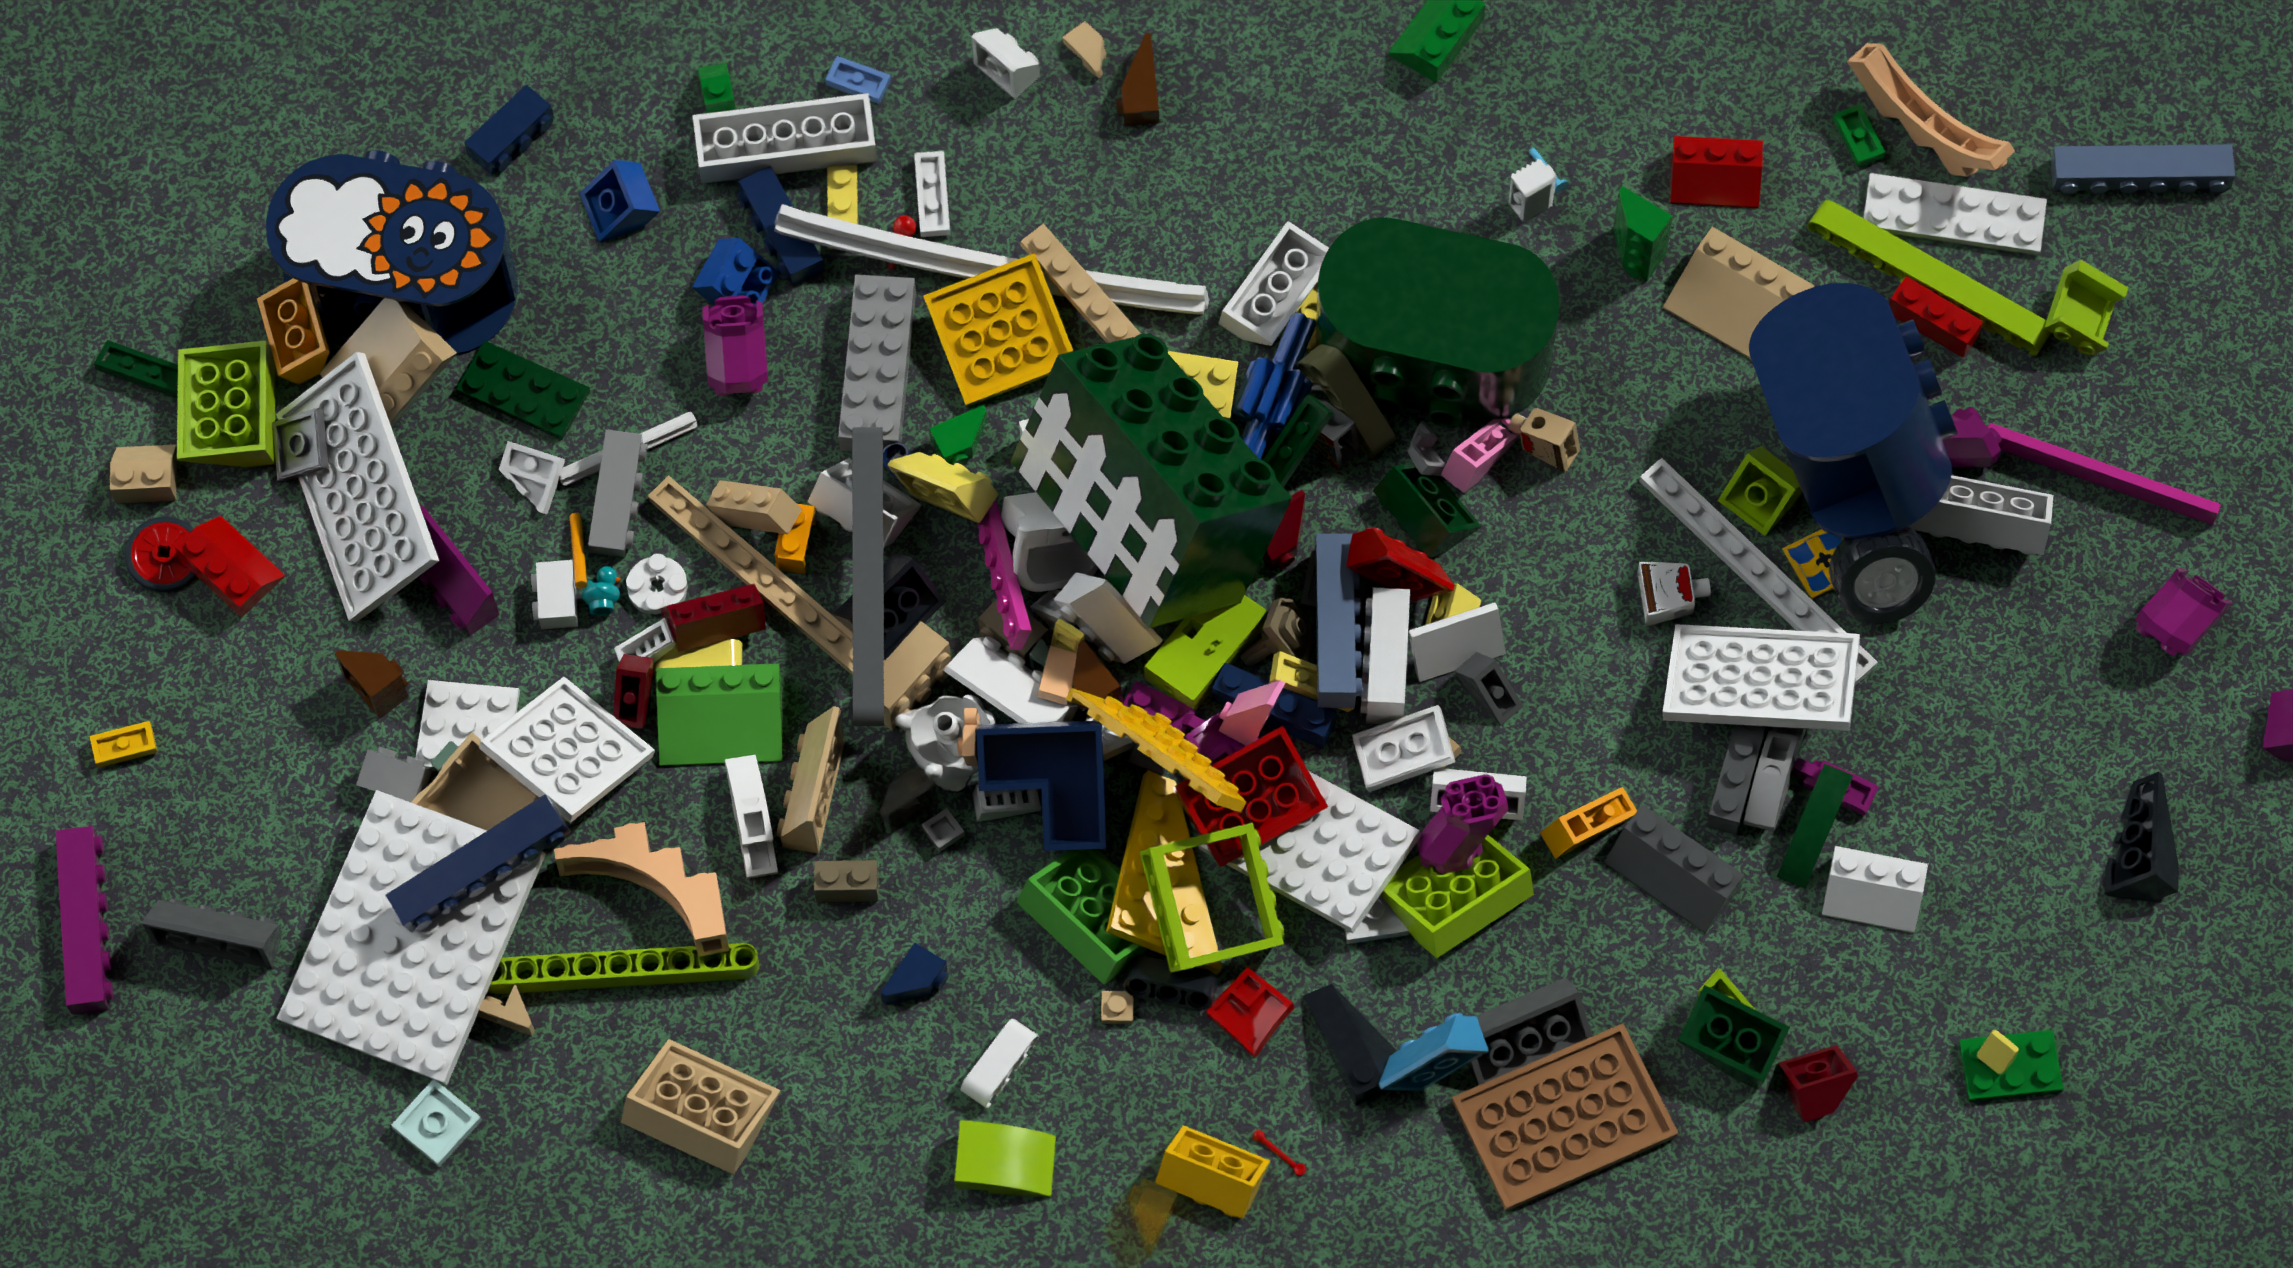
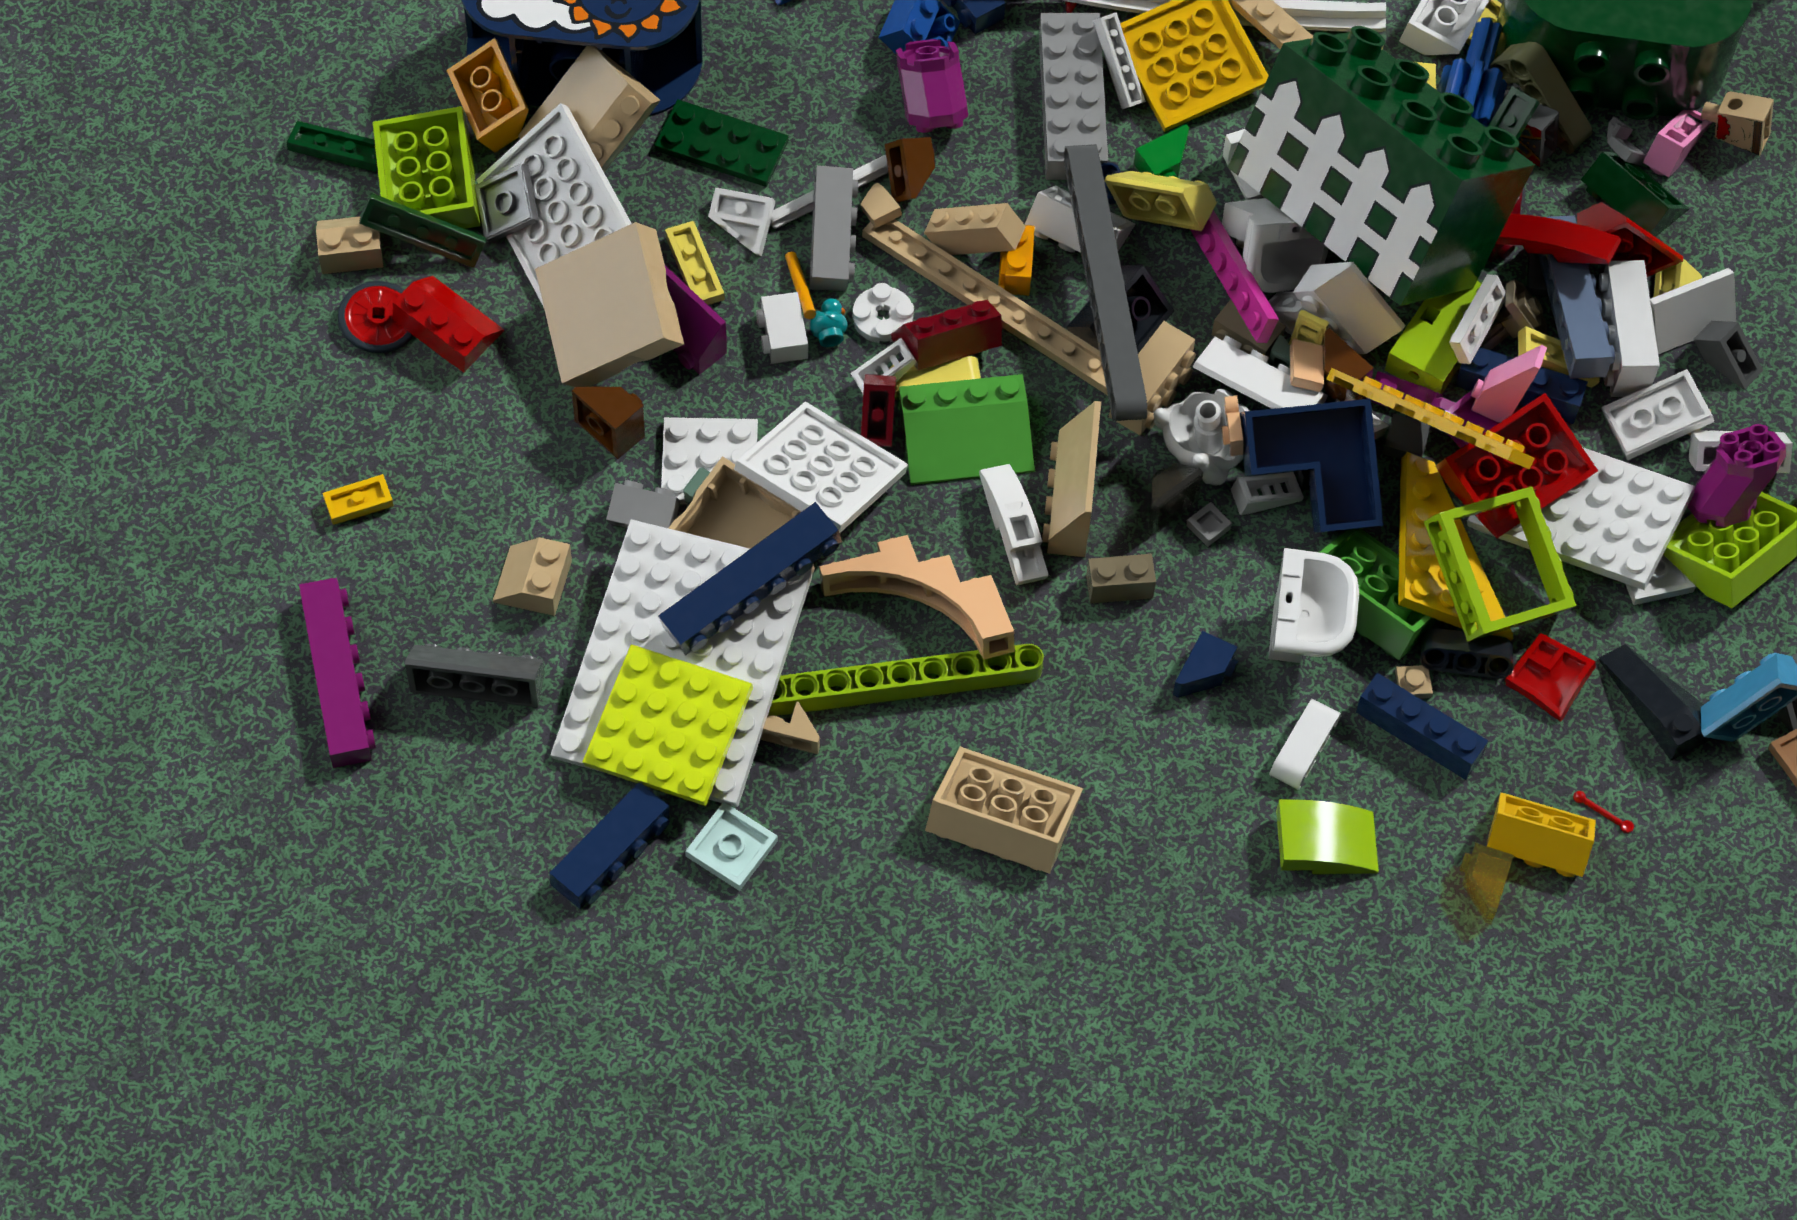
camera: 10 degrees left, 5 degrees down
(213, 470) = (422, 230): none -> dark green plate
(283, 836) = (534, 575): none -> tan slope
(321, 1114) = (609, 846): none -> dark blue brick
(379, 569) = (609, 306): none -> tan tile
(387, 1000) = (668, 724): none -> neon yellow plate
(478, 520) = (694, 262): none -> light yellow plate
(667, 471) = (880, 206): none -> tan slope
(702, 431) = (909, 166): none -> reddish brown slope
(926, 332) = (1119, 60): none -> white piece
(1020, 928) = (1313, 606): none -> white piece
(1114, 1054) = (1421, 726): none -> dark blue brick
(1234, 640) = (1478, 319): none -> white plate
(1323, 561) = (1563, 239): none -> red slope

